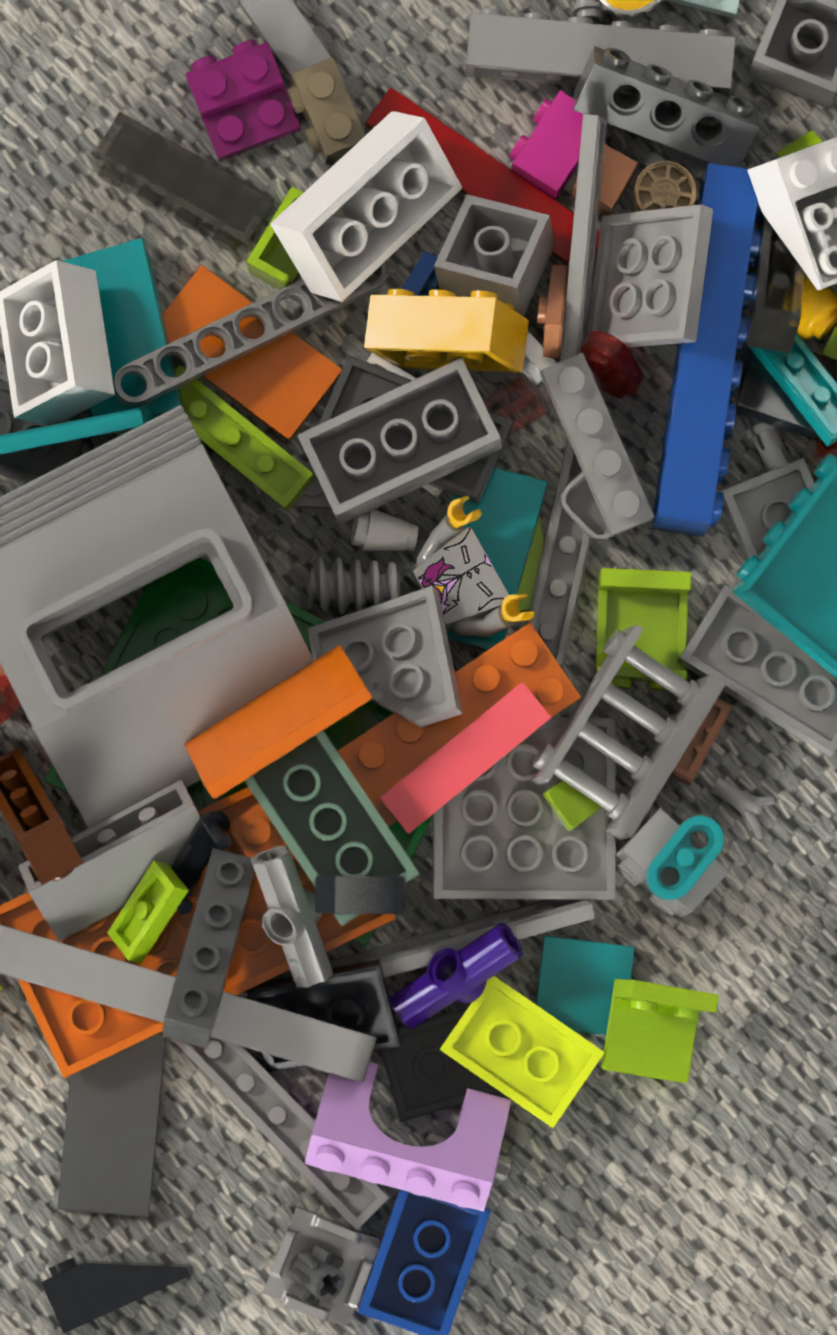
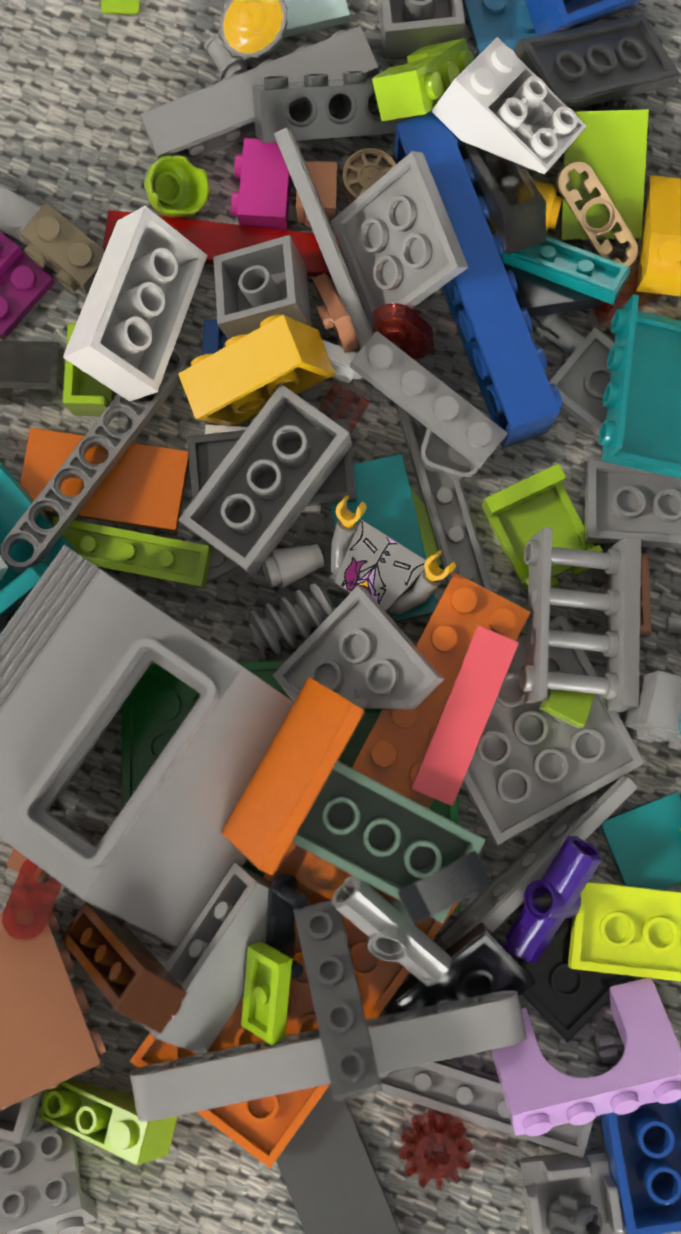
camera: 20 degrees left, 0 degrees up
(224, 1134) = (428, 1136): none -> clear red gear
(469, 102) = (176, 187): none -> lime hair
(751, 138) = (420, 84): none -> lime arch

